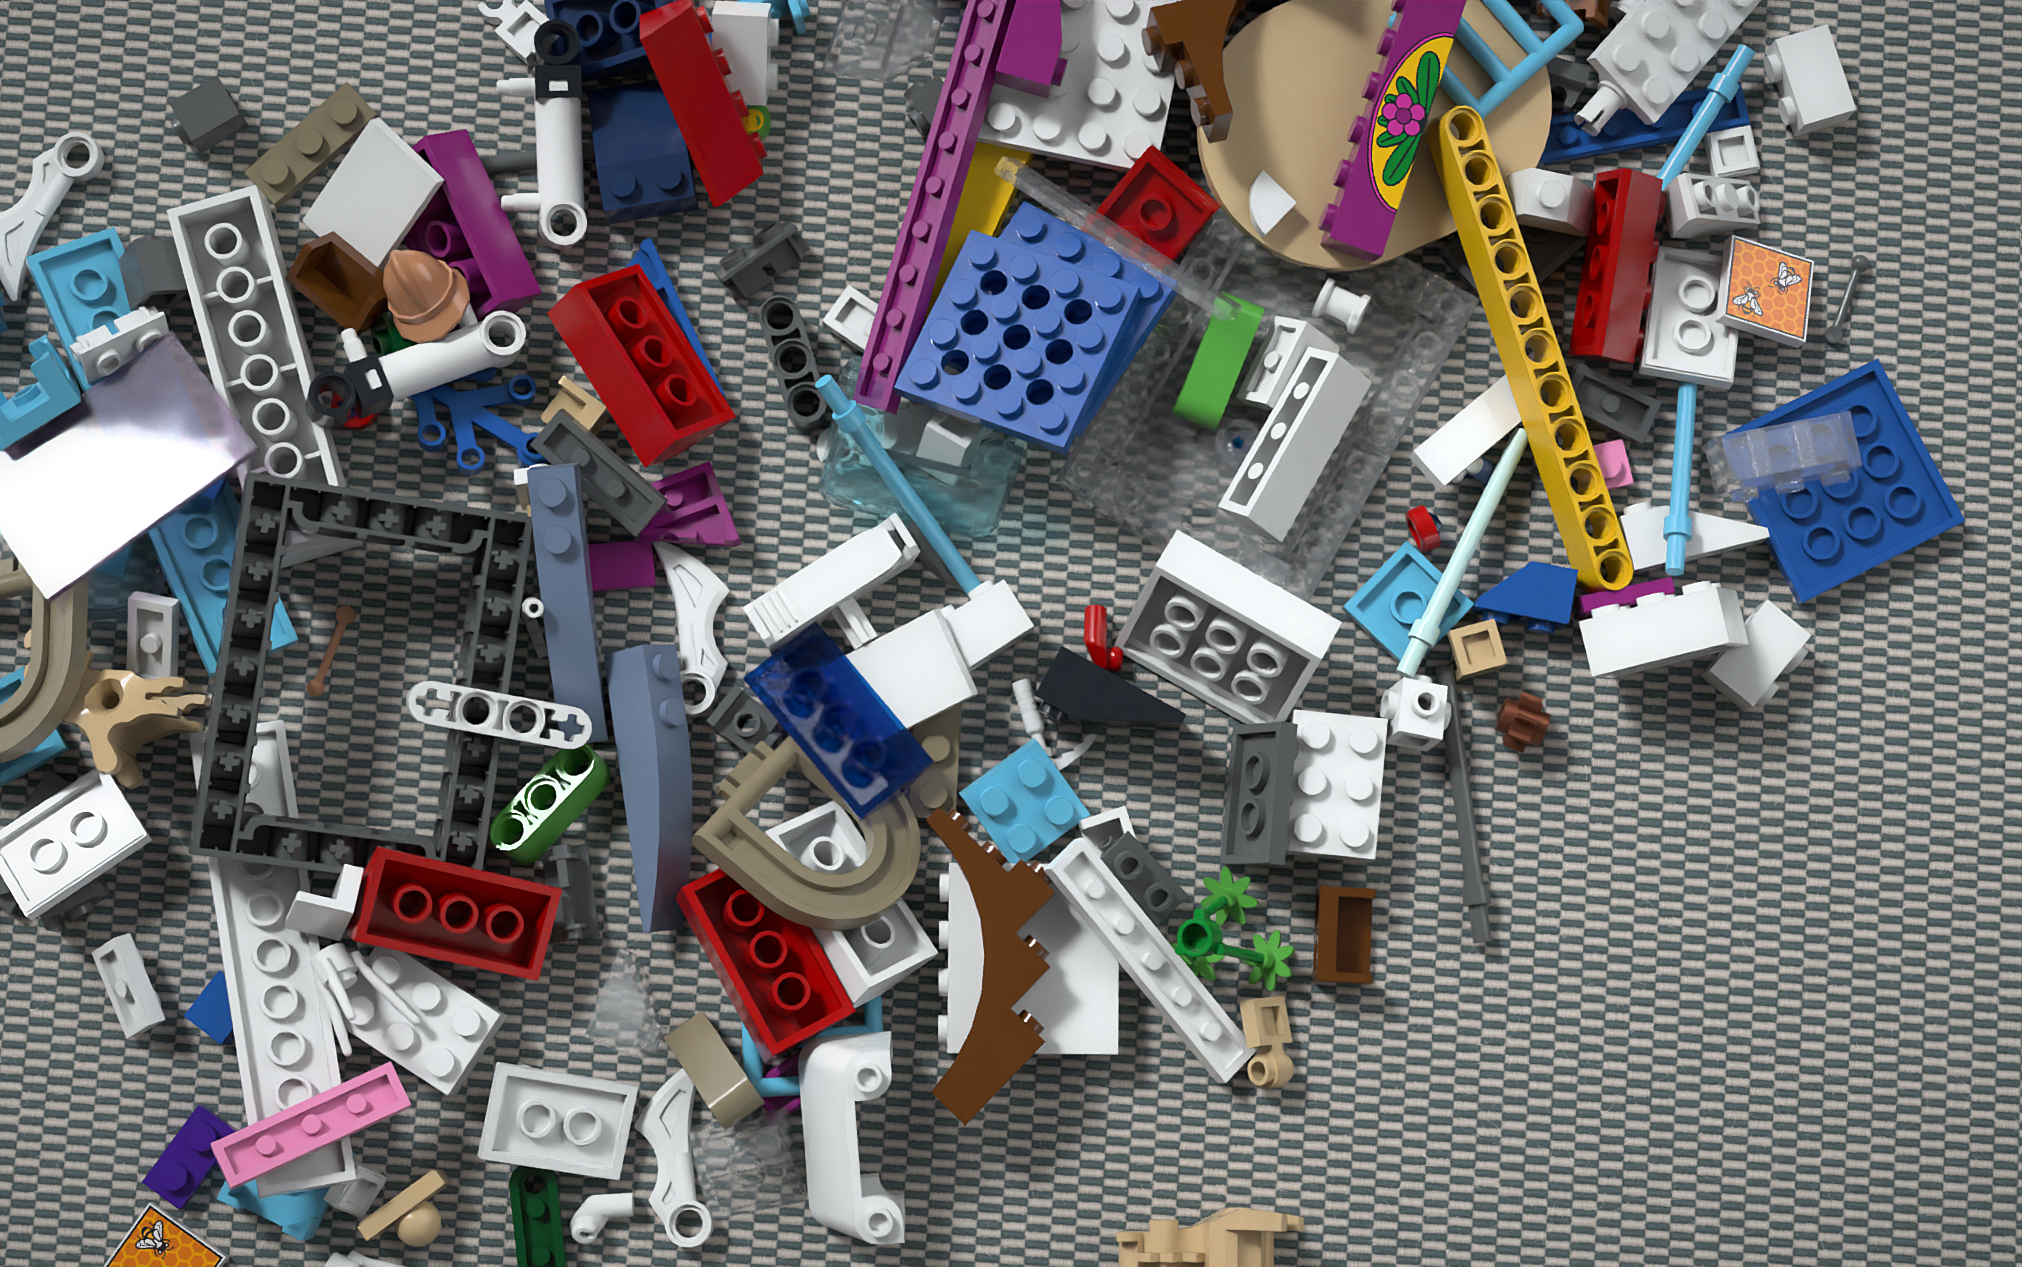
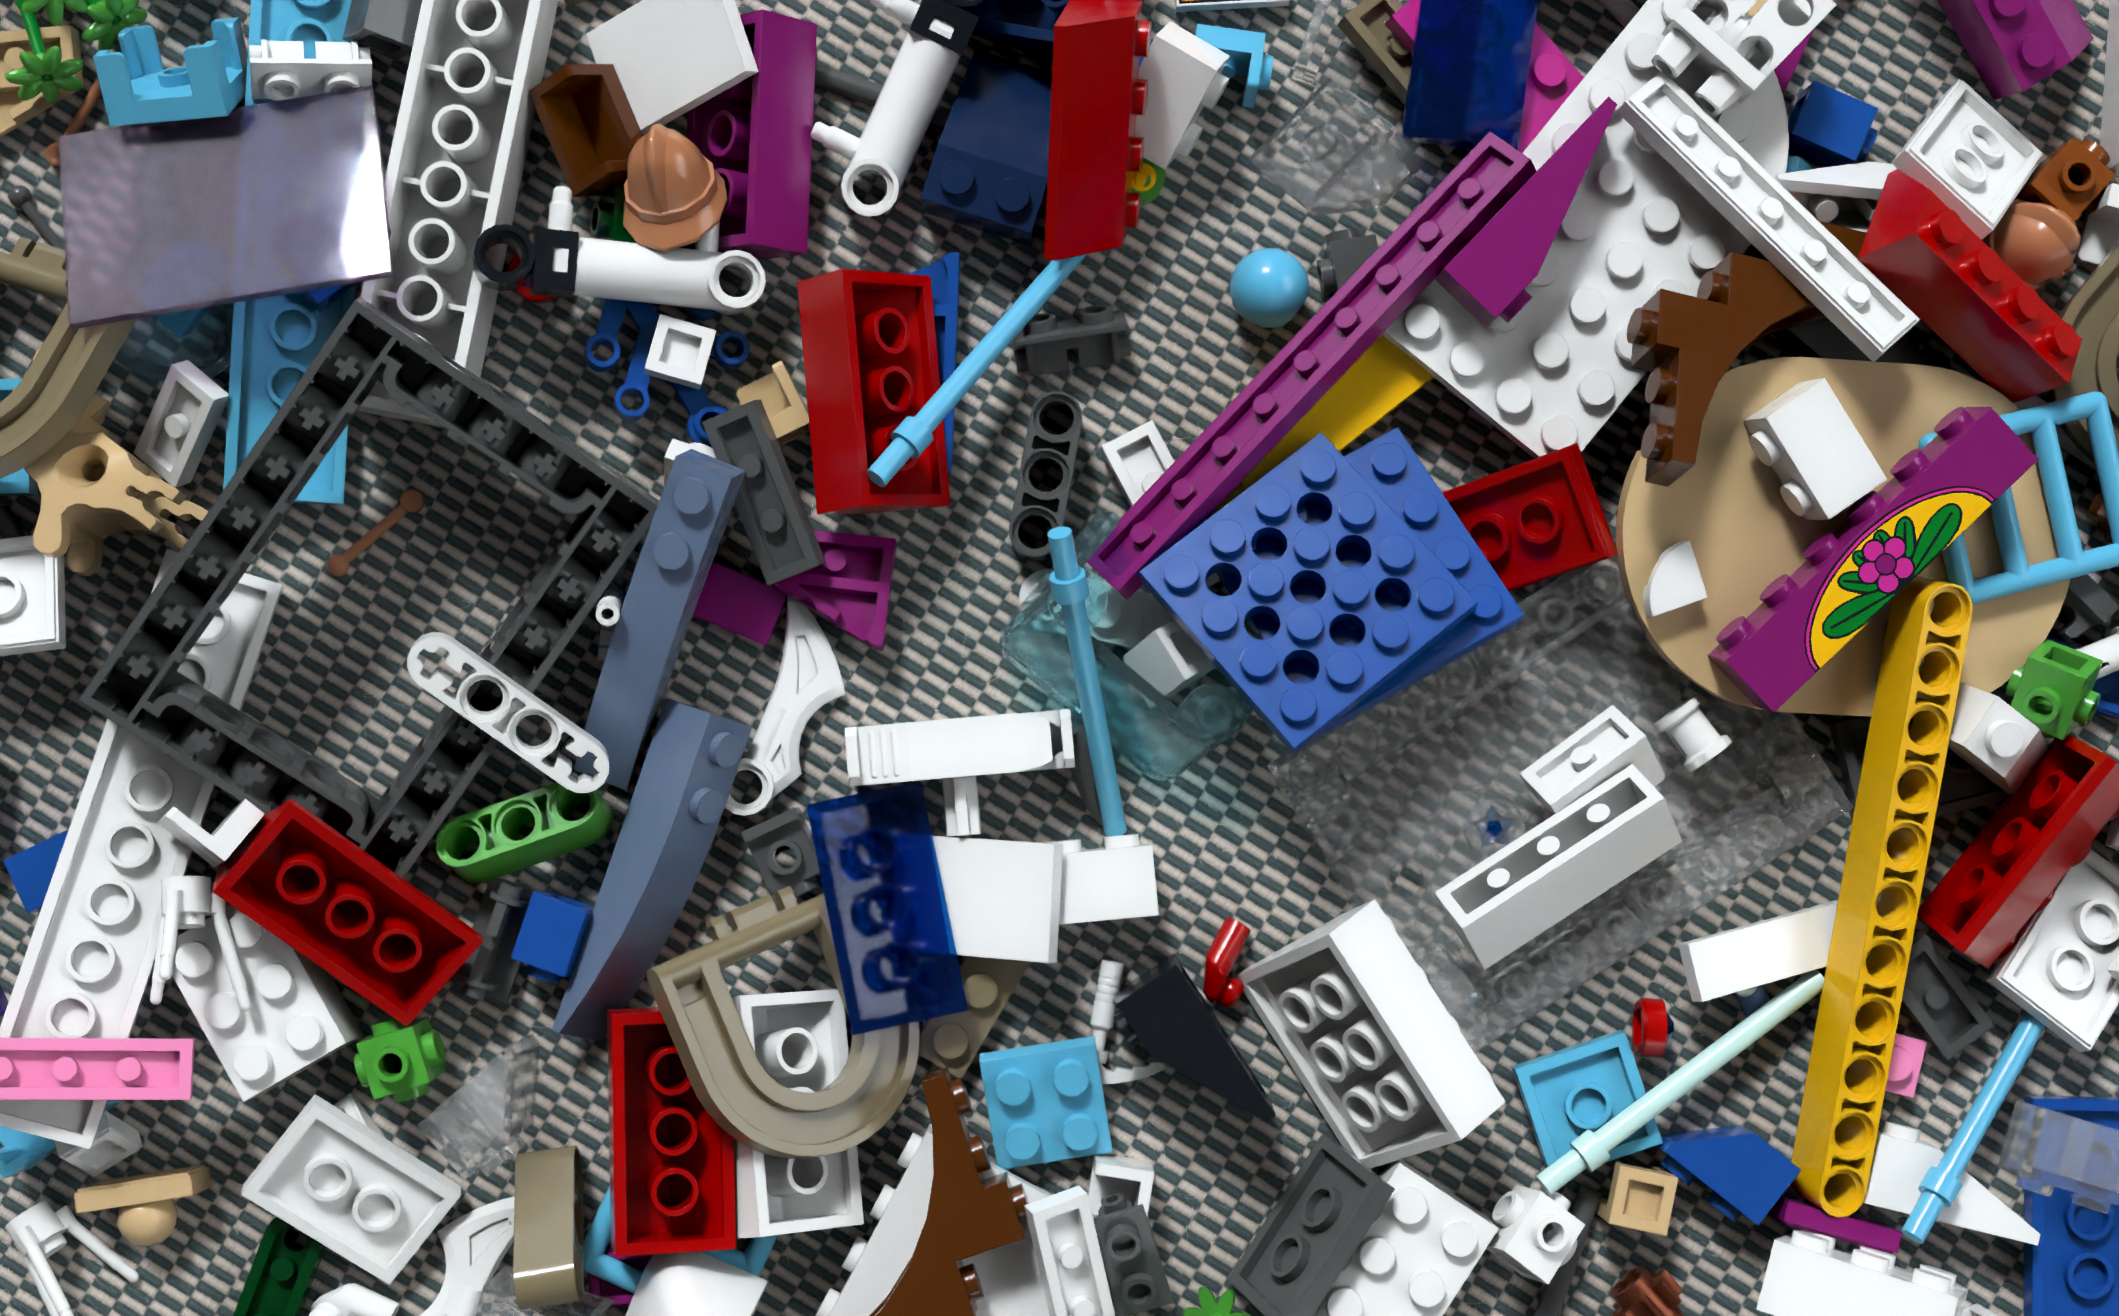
camera: 30 degrees right, 5 degrees up
(487, 406) = (679, 351): none -> white plate
(562, 1010) = (418, 1049): none -> bright green brick
(608, 867) = (551, 935): none -> blue brick
(686, 372) = (915, 432): none -> medium azure bar
(882, 150) = (1269, 287): none -> medium azure piece
(1118, 239) = (1481, 532): clear tile -> none
(1217, 366) = (1521, 724): bright green beam -> none
(1316, 65) = (1813, 450): none -> white brick
(1576, 145) = (2056, 689): none -> bright green brick

